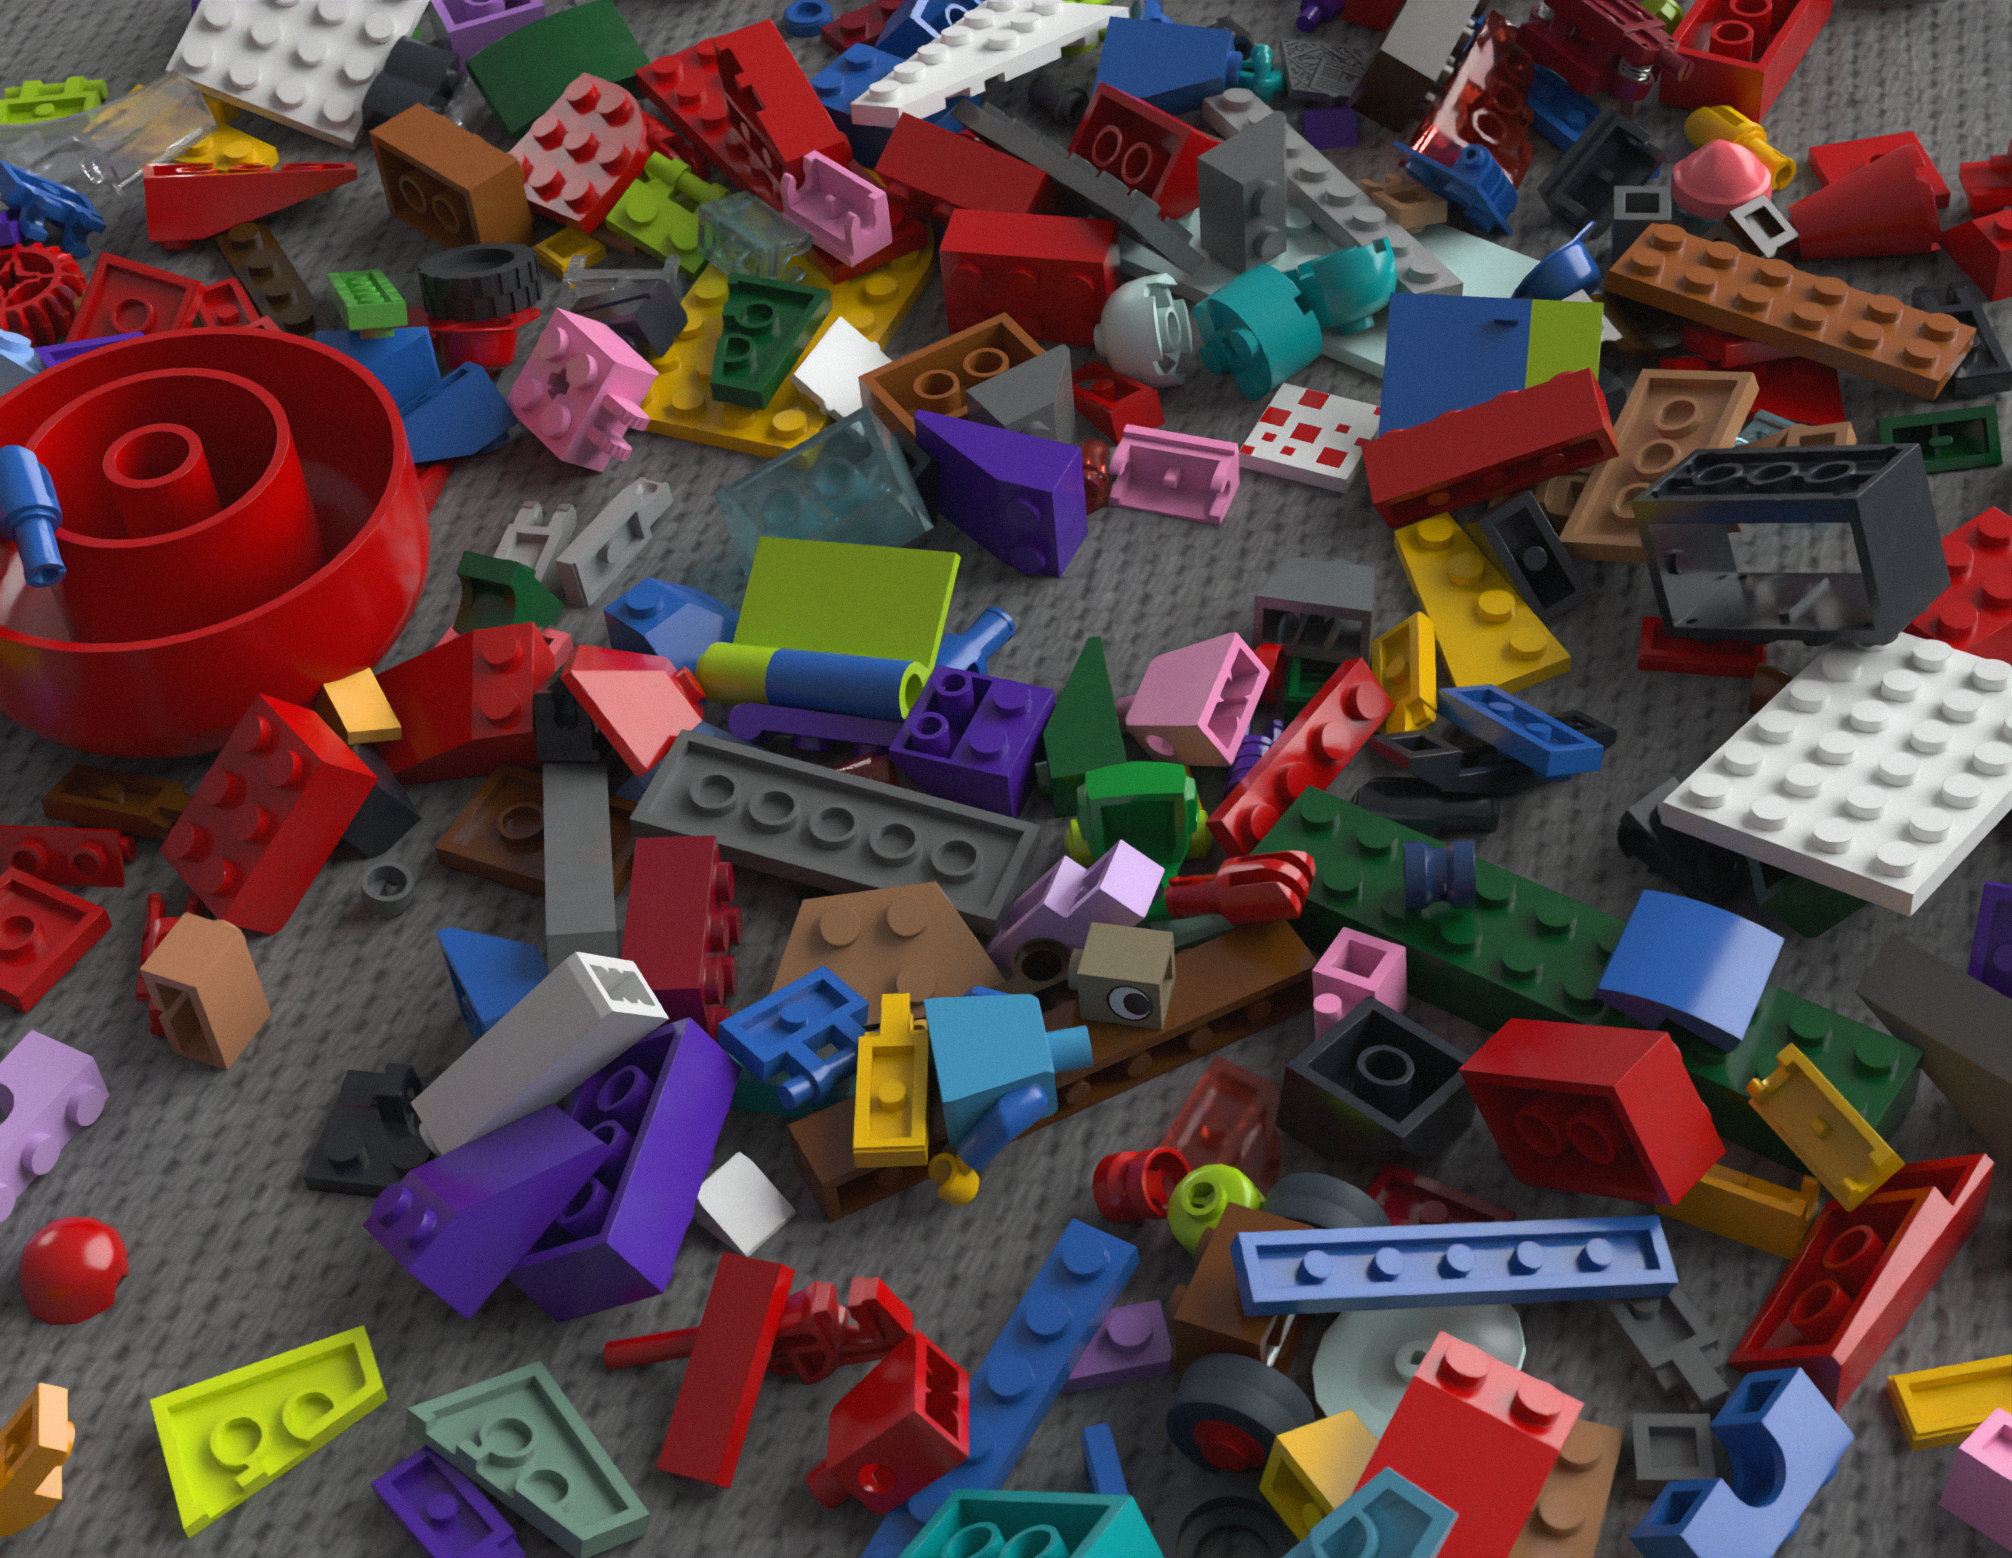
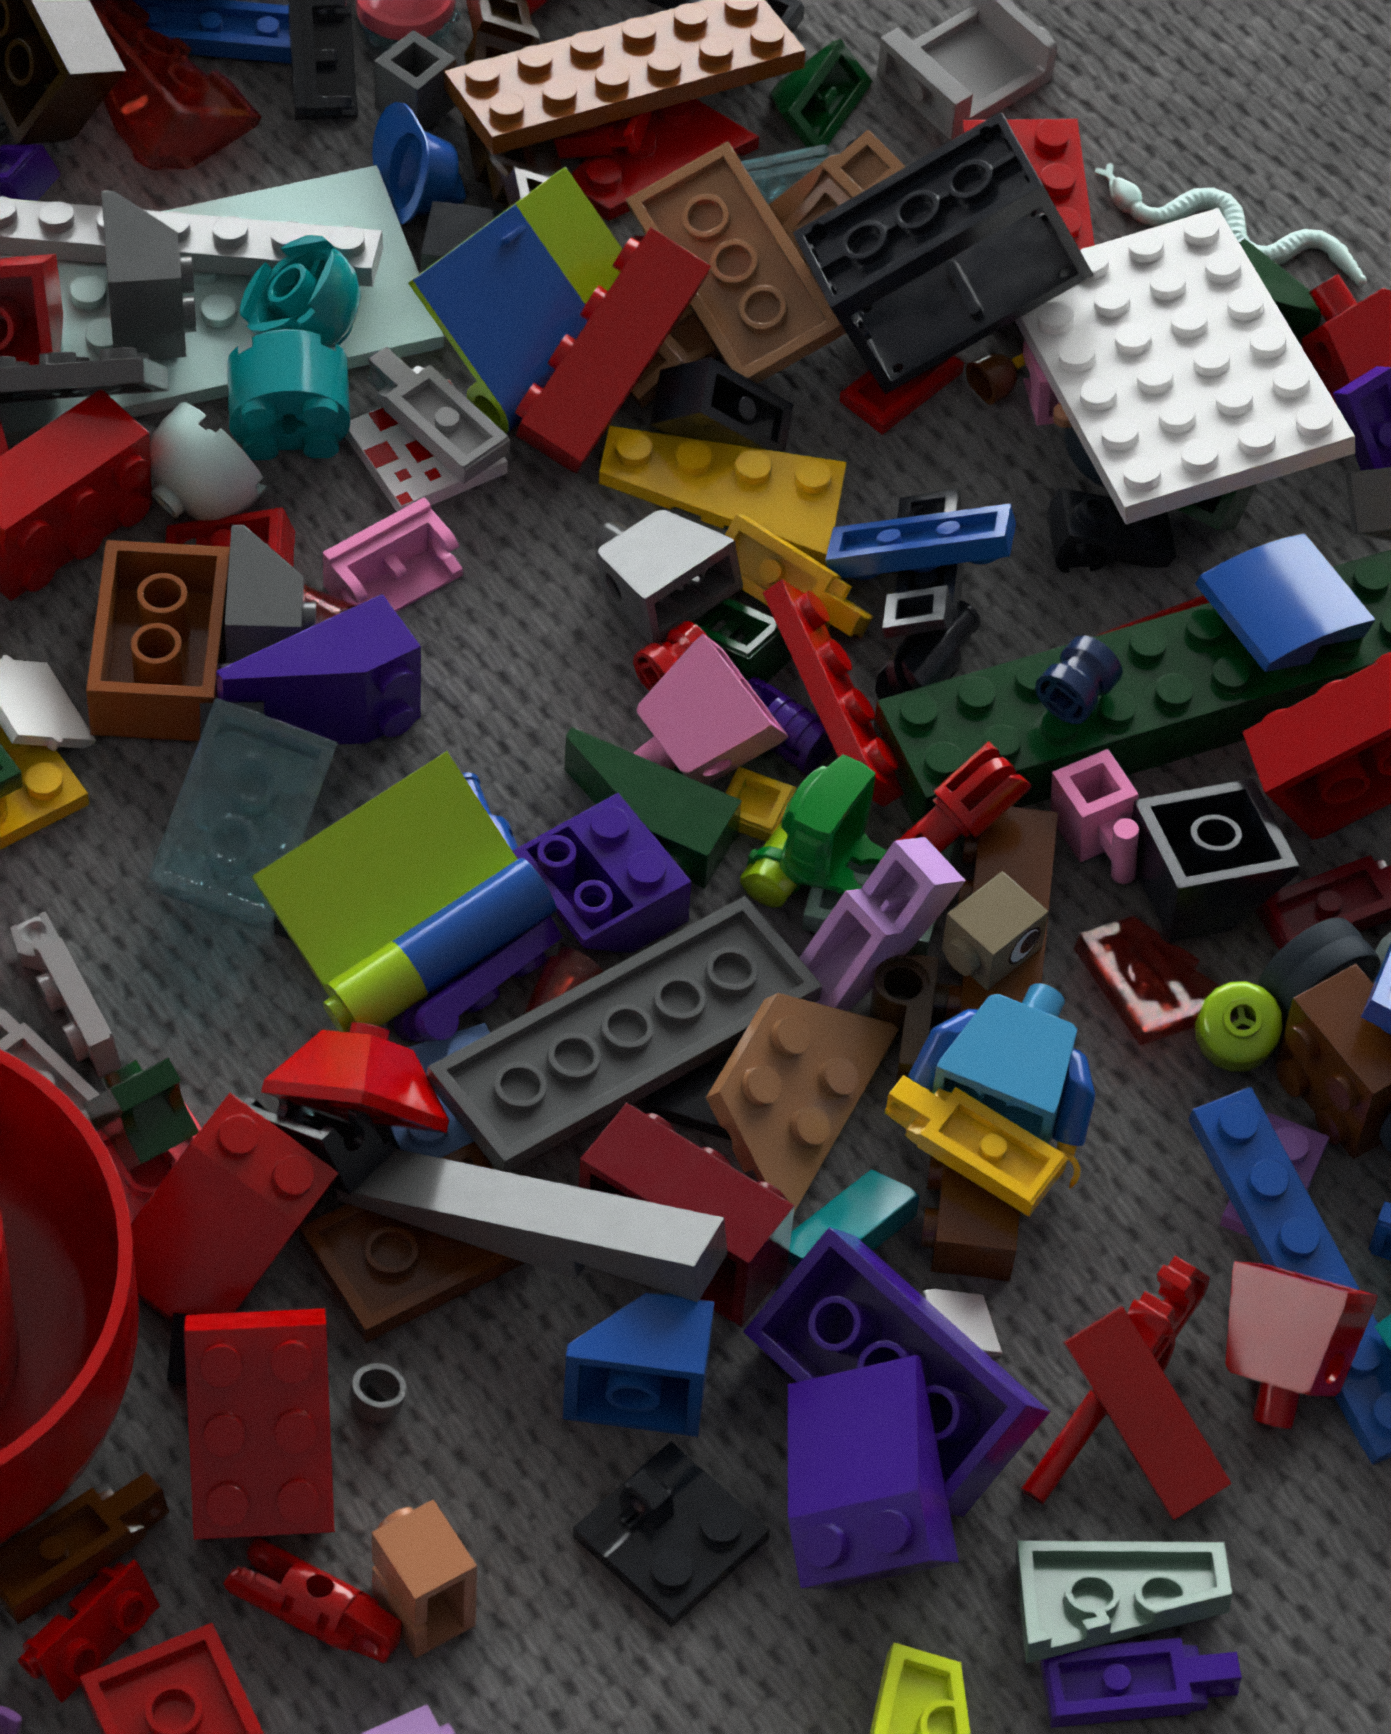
camera: 65 degrees left, 10 degrees up
(358, 710) = (163, 1301): slope -> none
(540, 1049) = (769, 1359): white slope -> none
(669, 622) = (256, 1013): blue slope -> none
(792, 1026) = (843, 1180): blue plate -> none
(1136, 1184) = (1167, 1054): red wheel -> none
(1330, 414) = (437, 415): none -> light grey hinge
(1409, 205) = (216, 195): medium nougat plate -> none
(1471, 185) = (261, 152): blue hinge -> none

